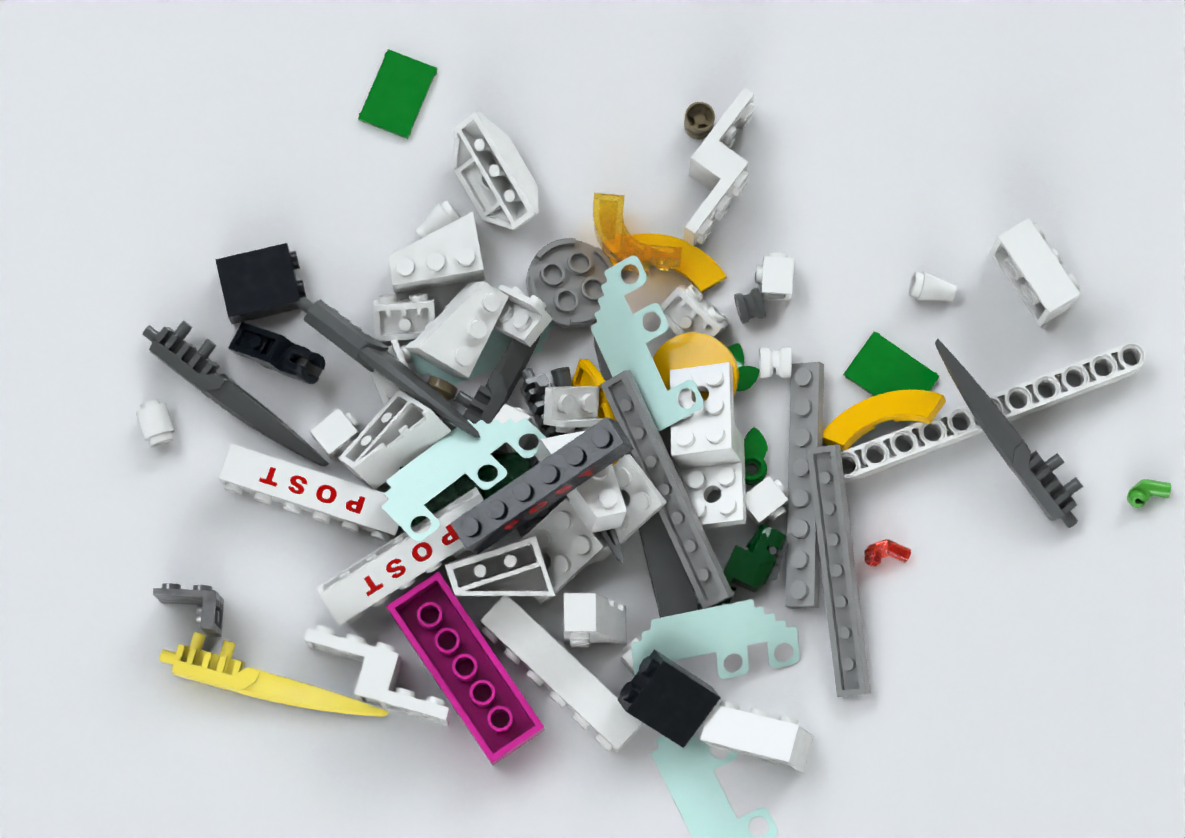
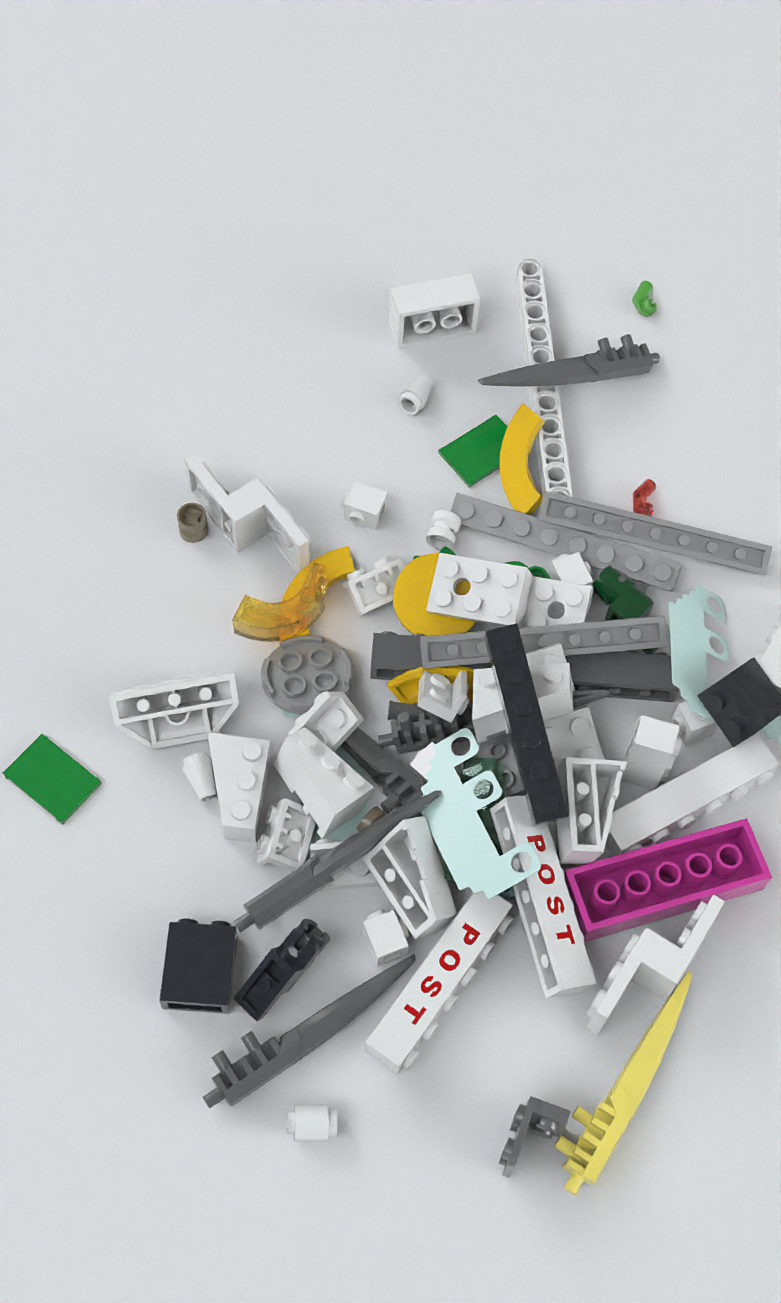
camera: 75 degrees left, 15 degrees down
(625, 348) = (392, 636): light aqua piece -> none
(750, 305) = (383, 534): dark grey wheel -> none

